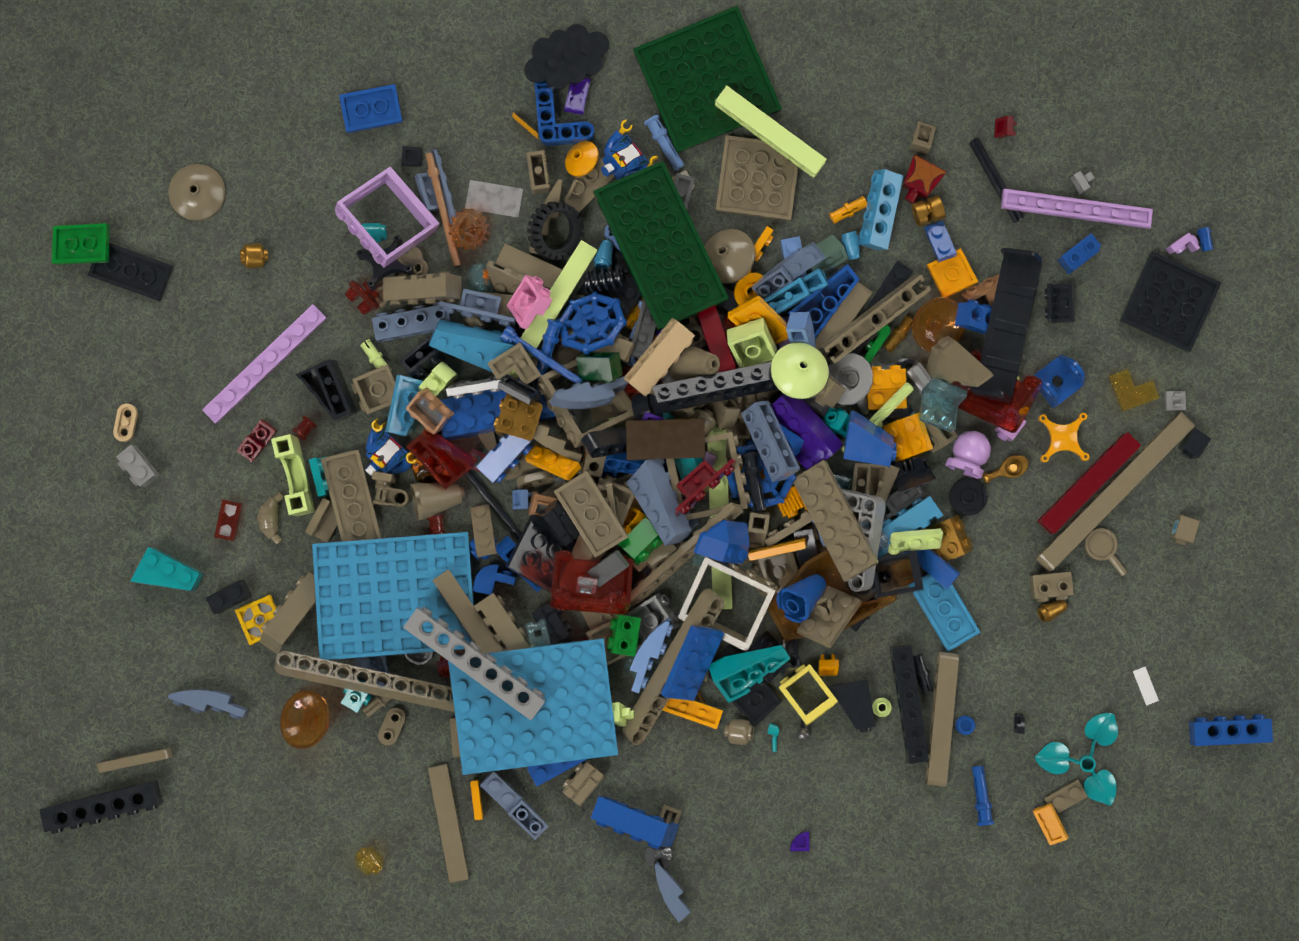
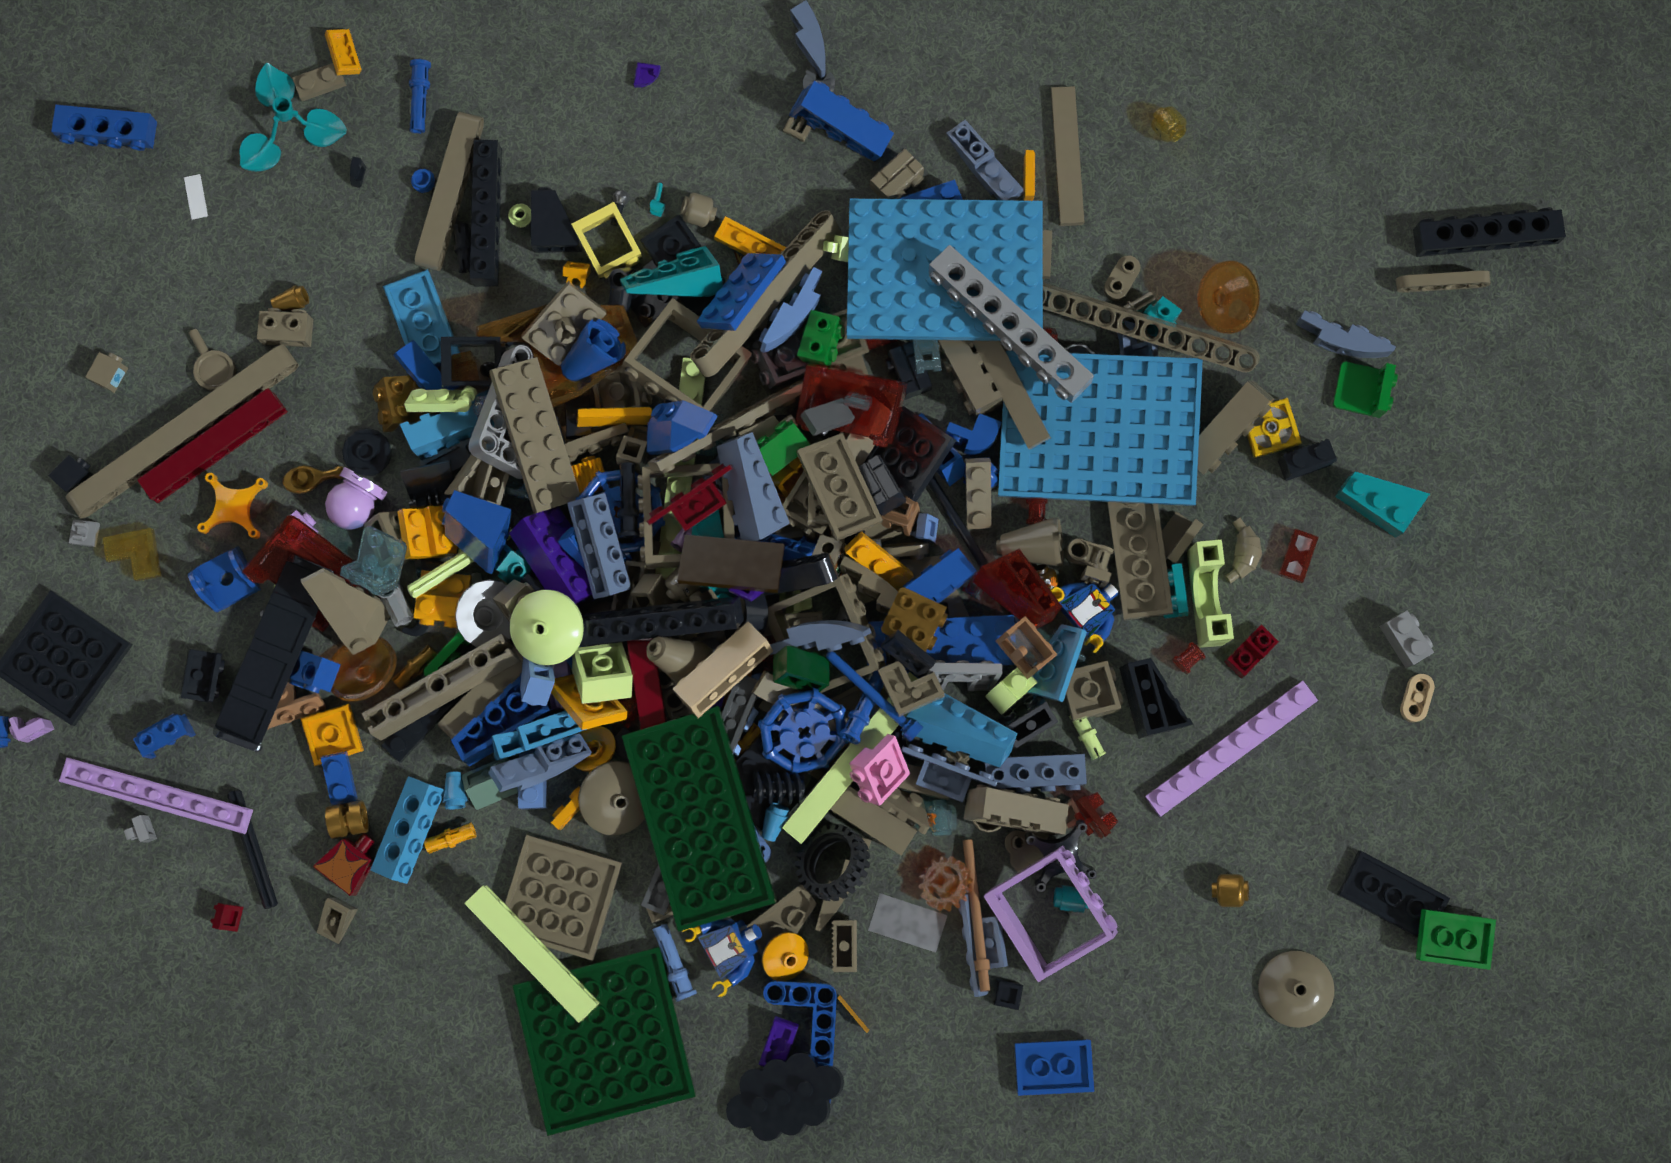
camera: 170 degrees left, 5 degrees down
(188, 662) = (1365, 389): none -> green bracket

